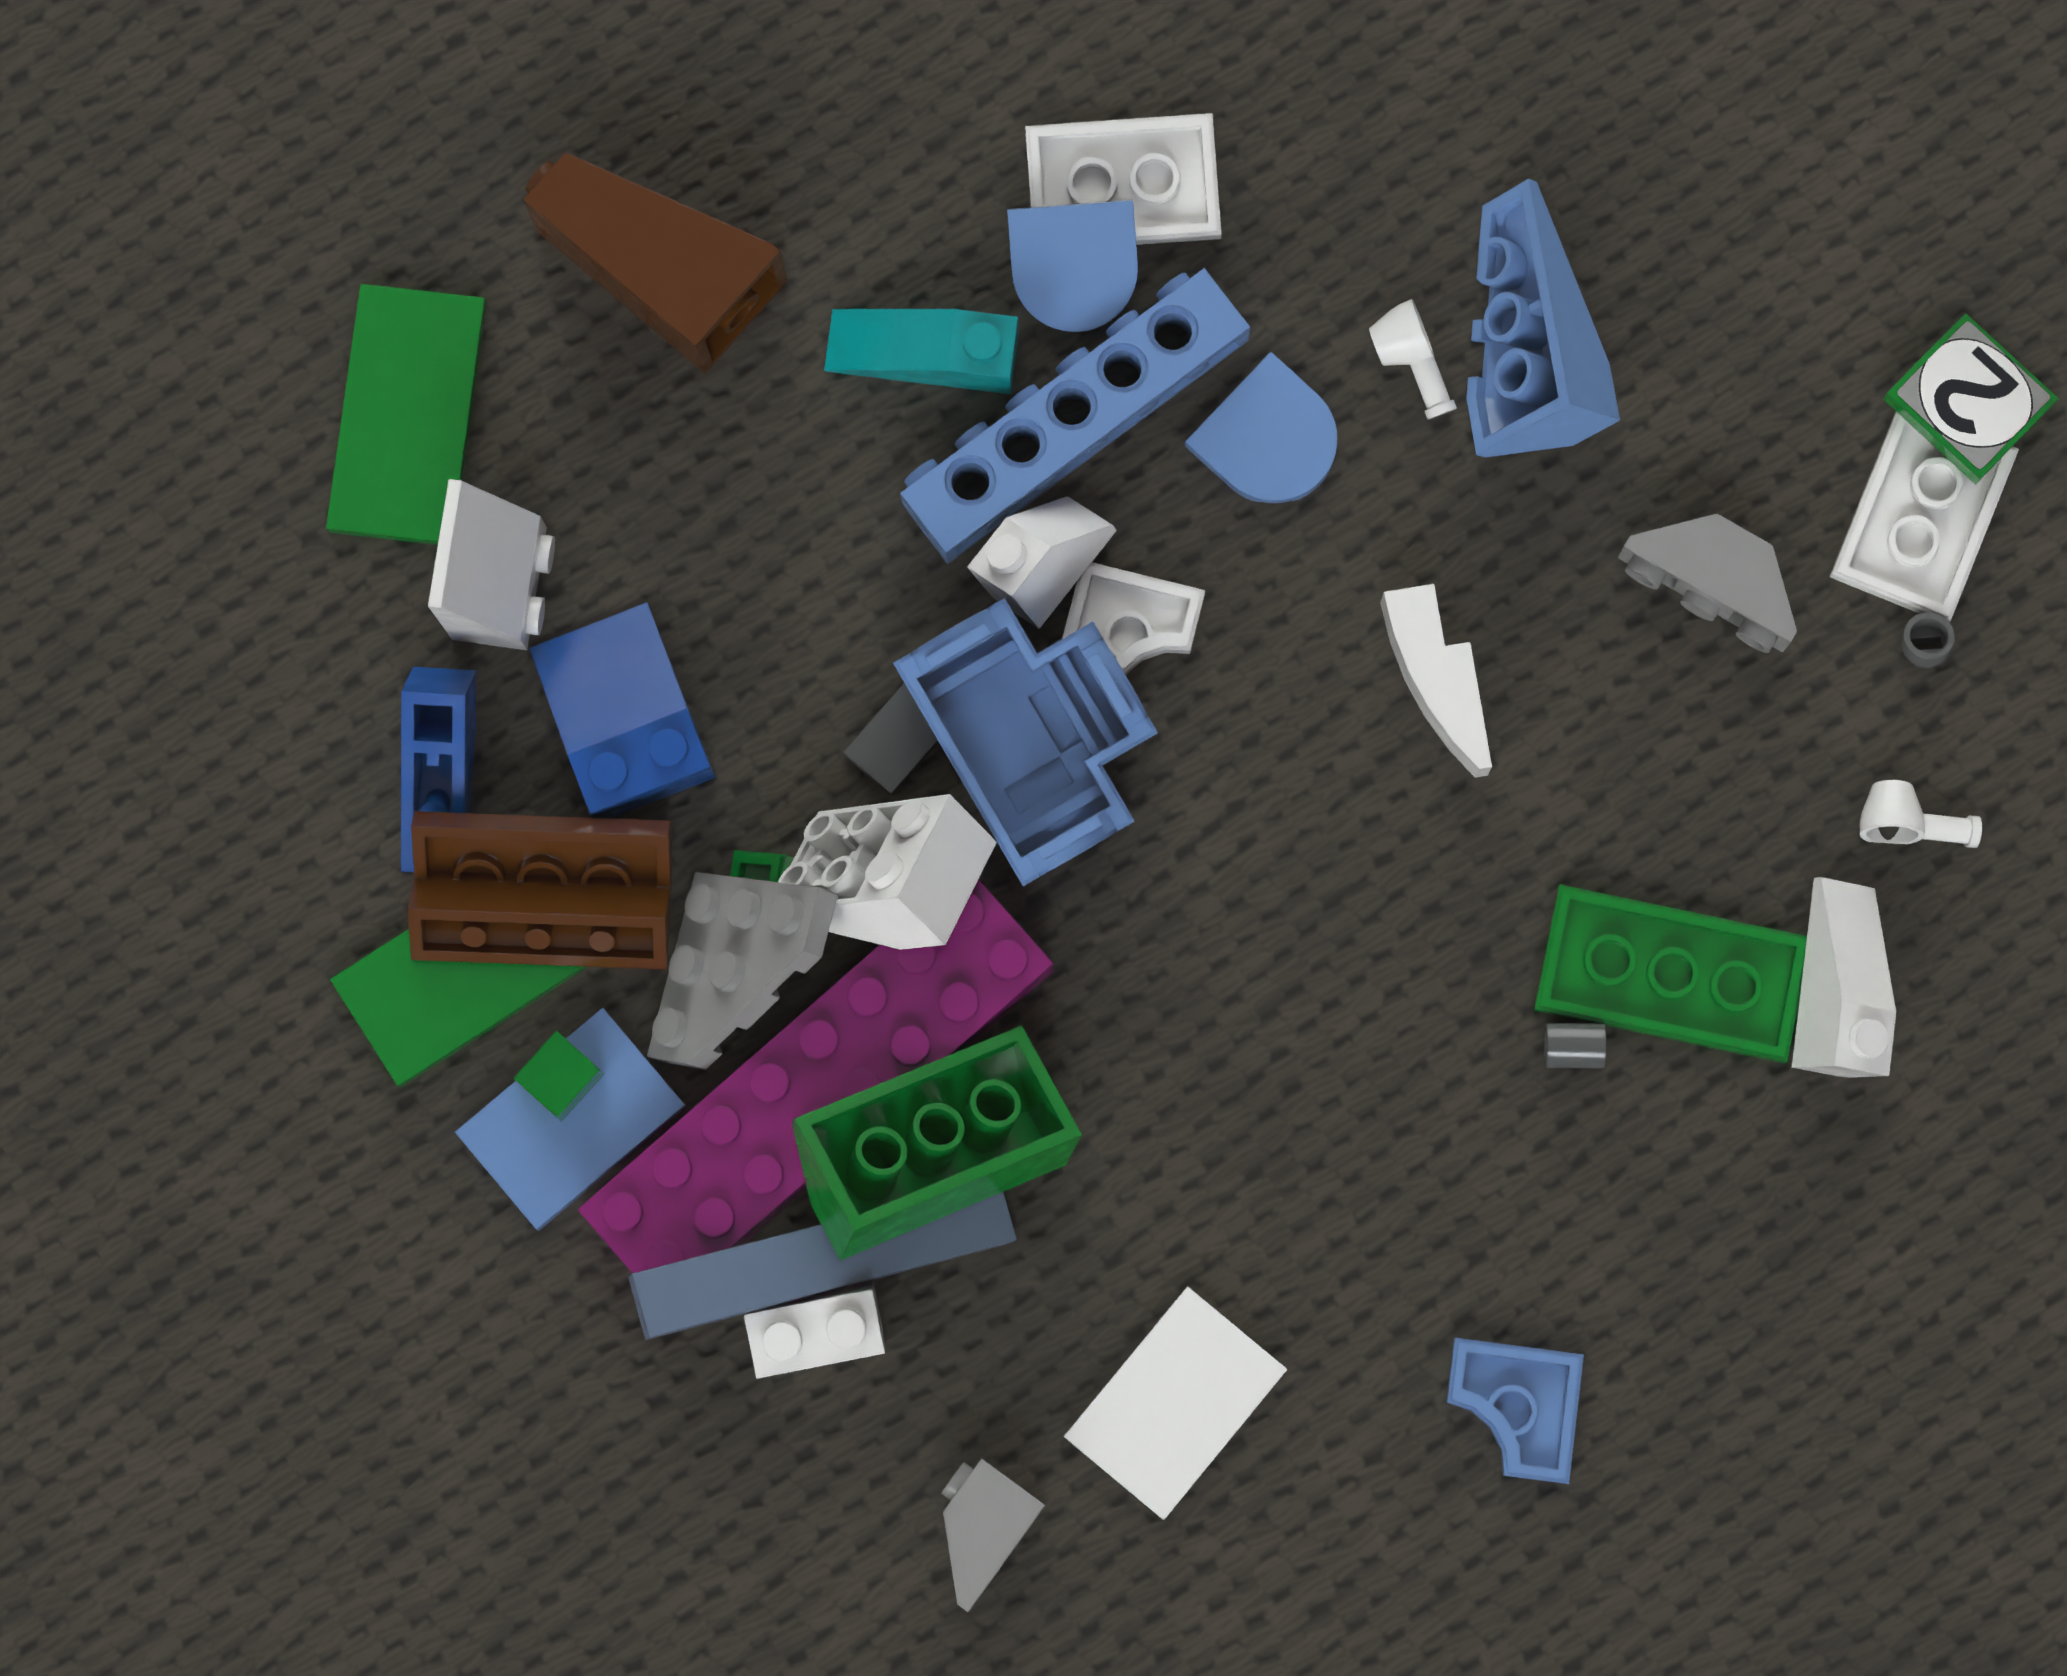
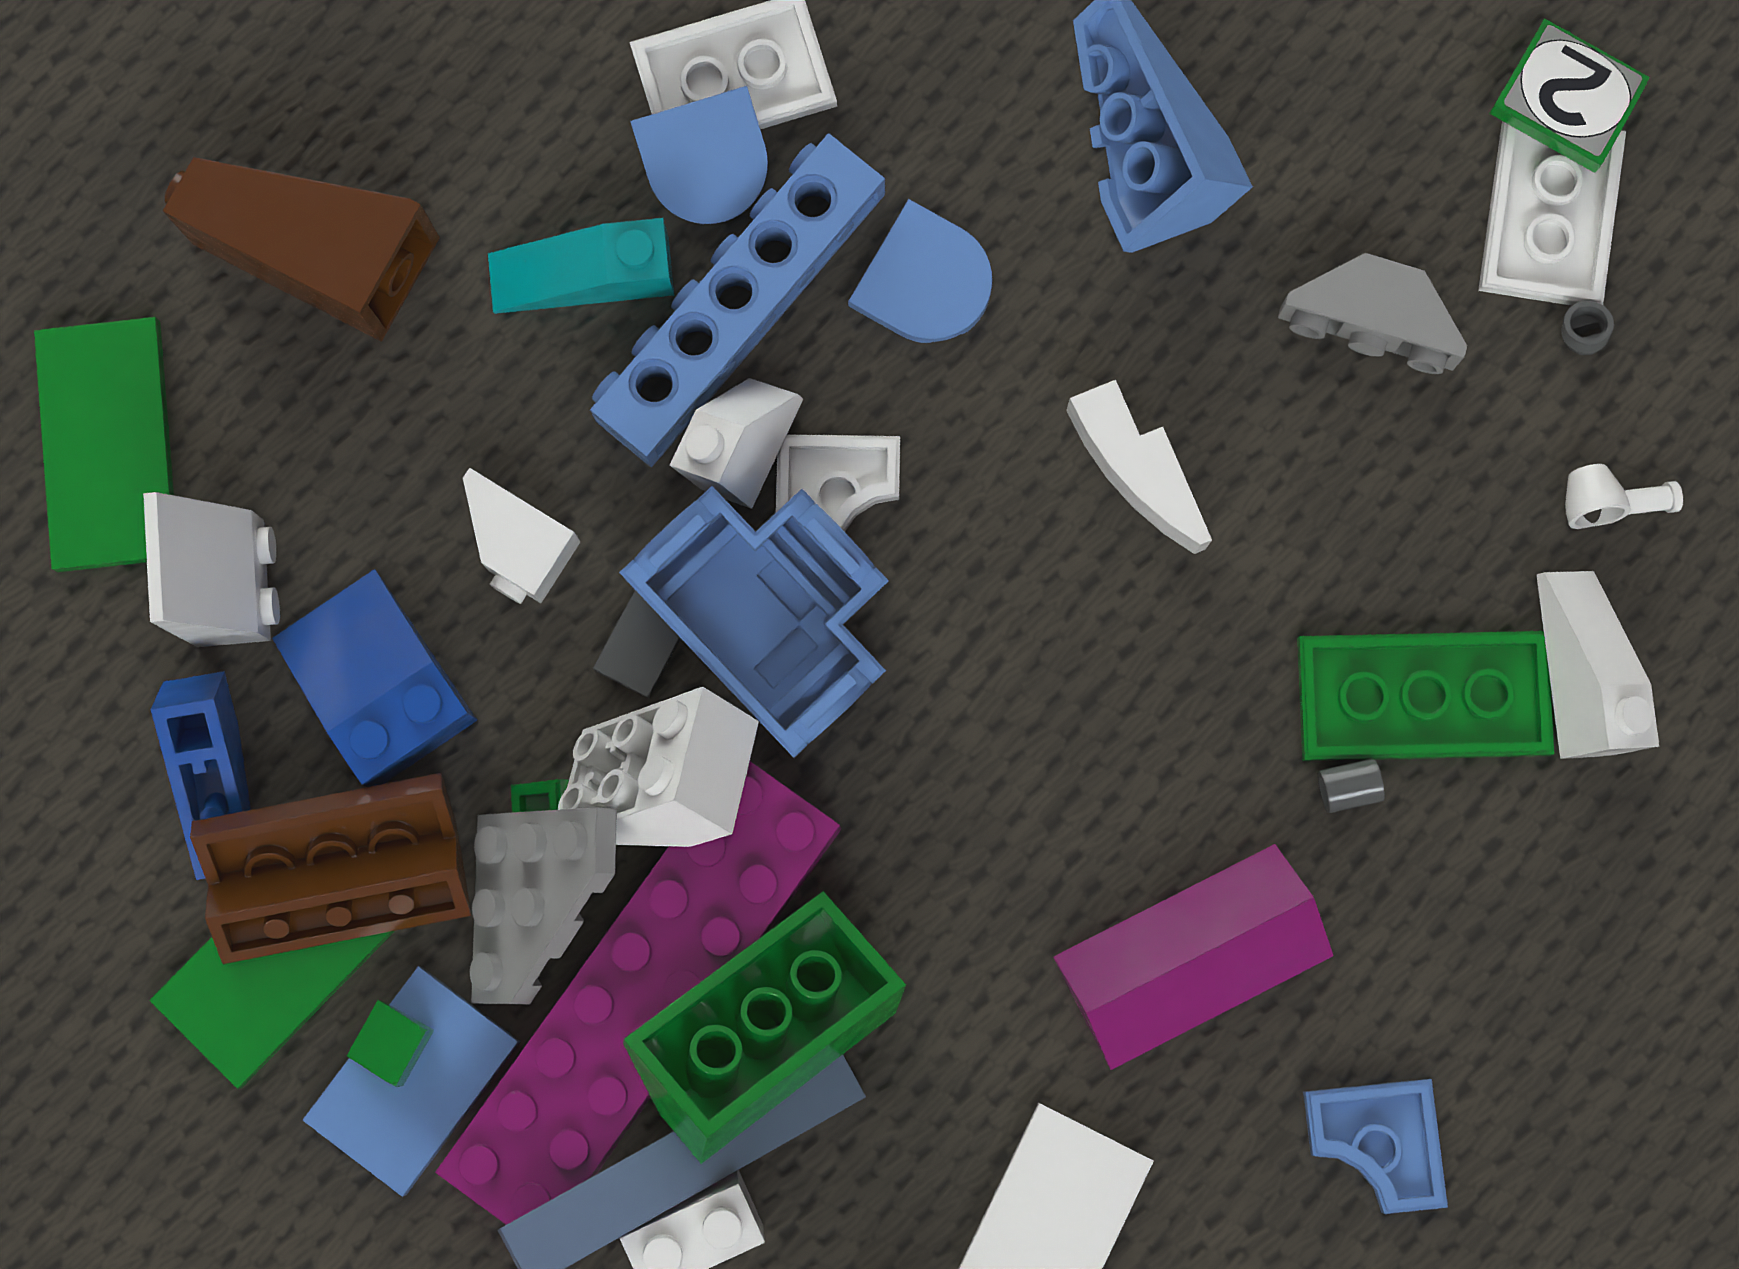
camera: 15 degrees left, 0 degrees up
(796, 607) = (516, 540): none -> white slope
(1377, 1178) = (1195, 955): none -> magenta slope
(1403, 341) = (1031, 161): white bar -> none

